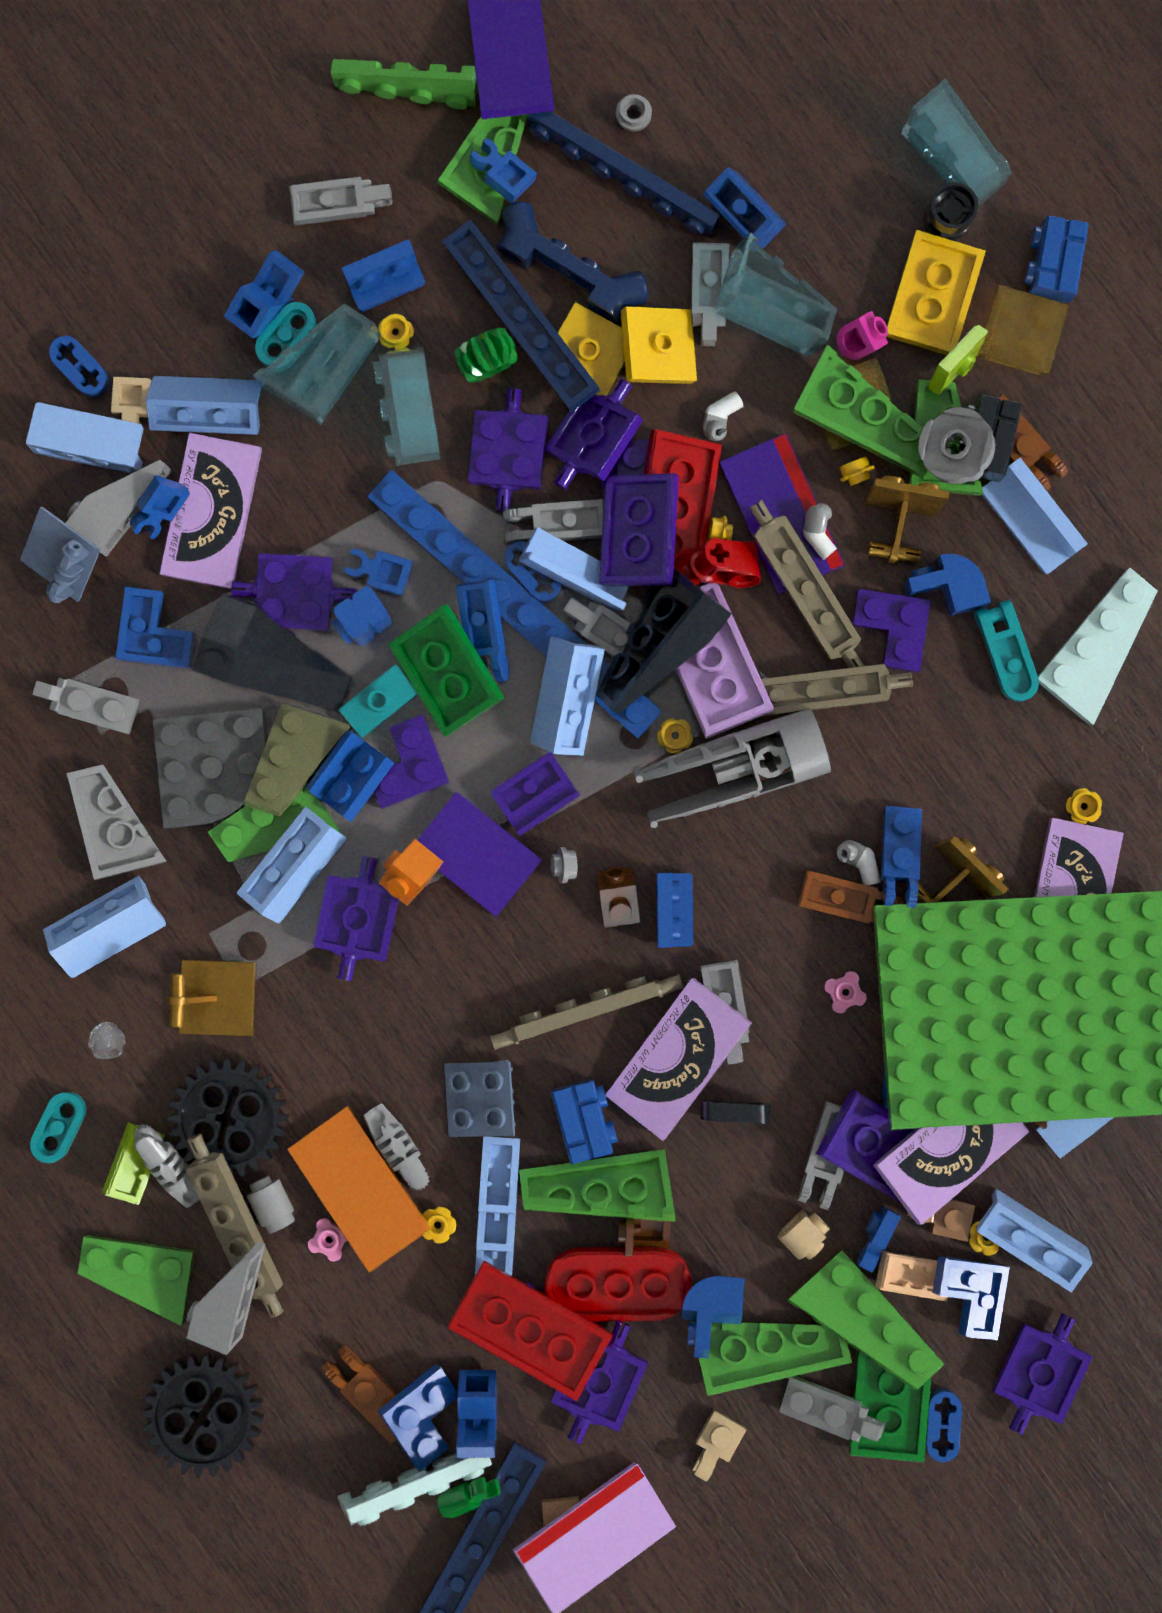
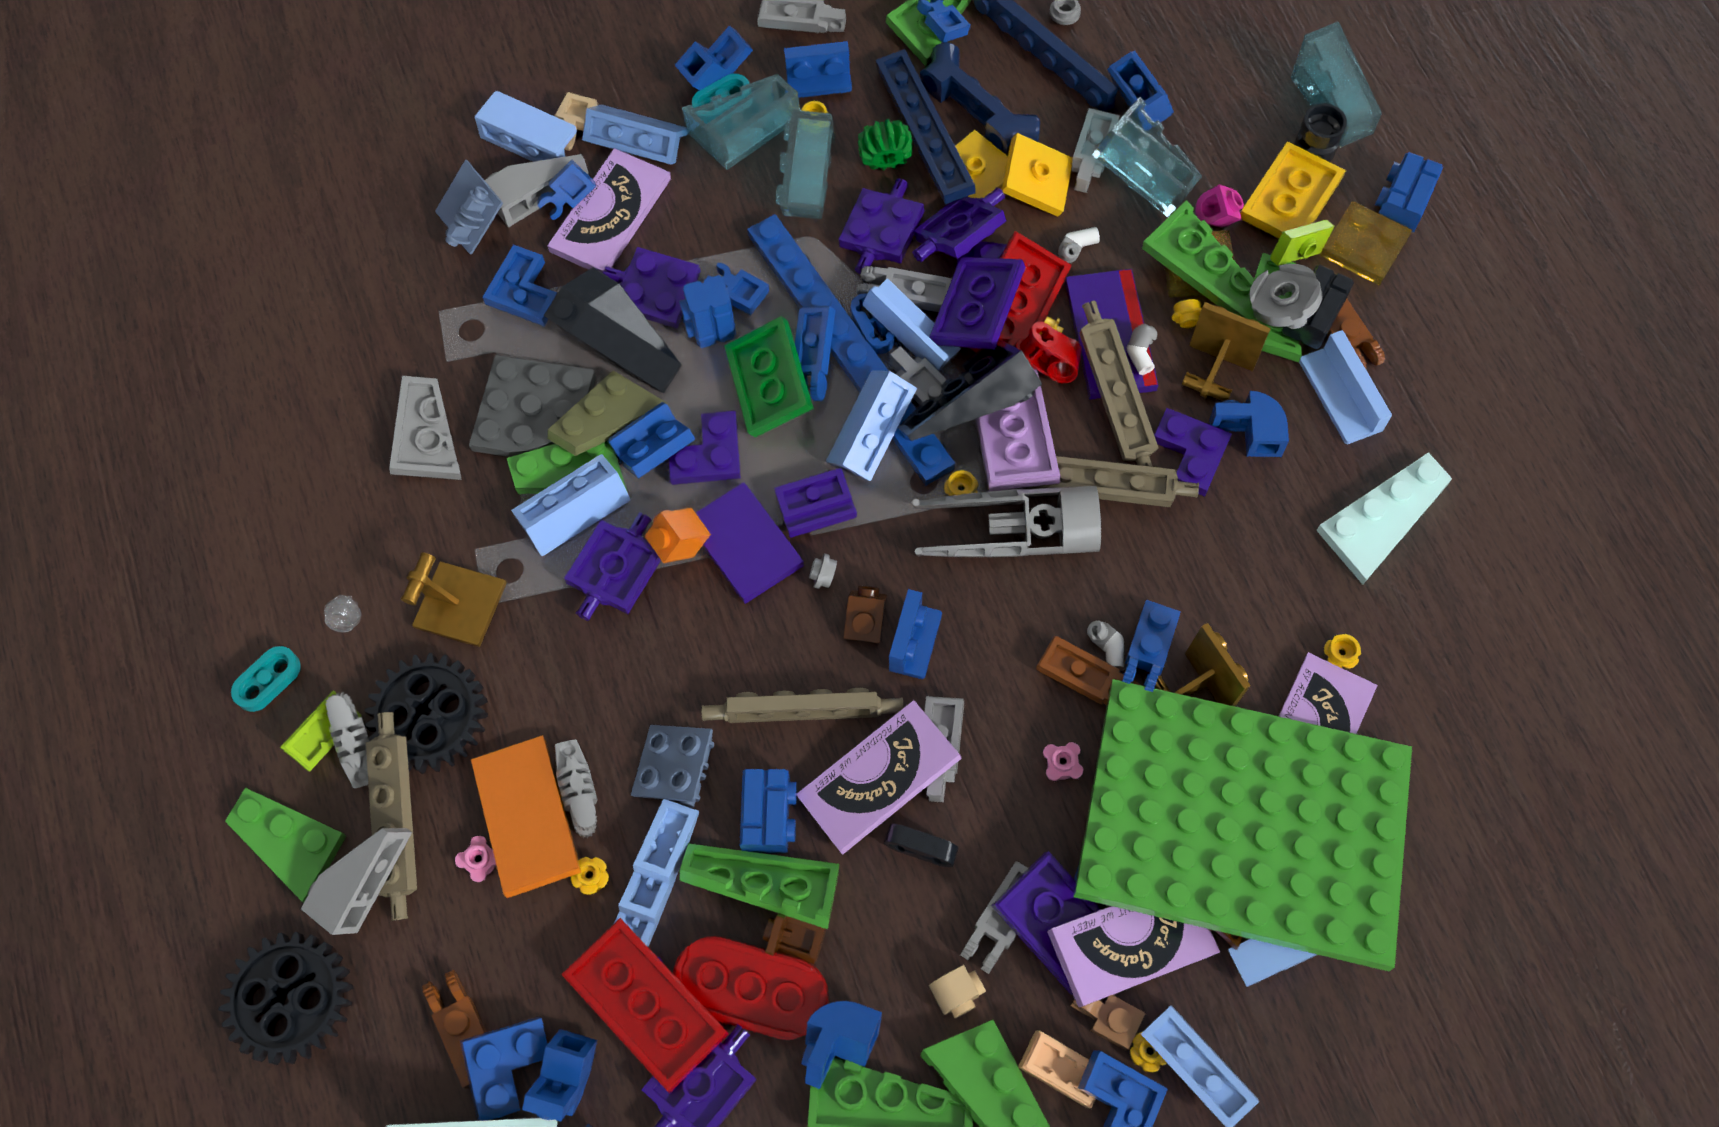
camera: 20 degrees right, 20 degrees down
(85, 360) = (538, 85): blue beam -> none
(90, 704) = (446, 331): light grey hinge -> none
(103, 927) = (381, 517): light blue panel -> none
(270, 1204) = (434, 806): light grey brick -> none
(378, 701) = (700, 392): teal plate -> none
(880, 1229) = (1038, 1006): blue plate -> none
(1008, 652) = (1296, 496): teal plate -> none

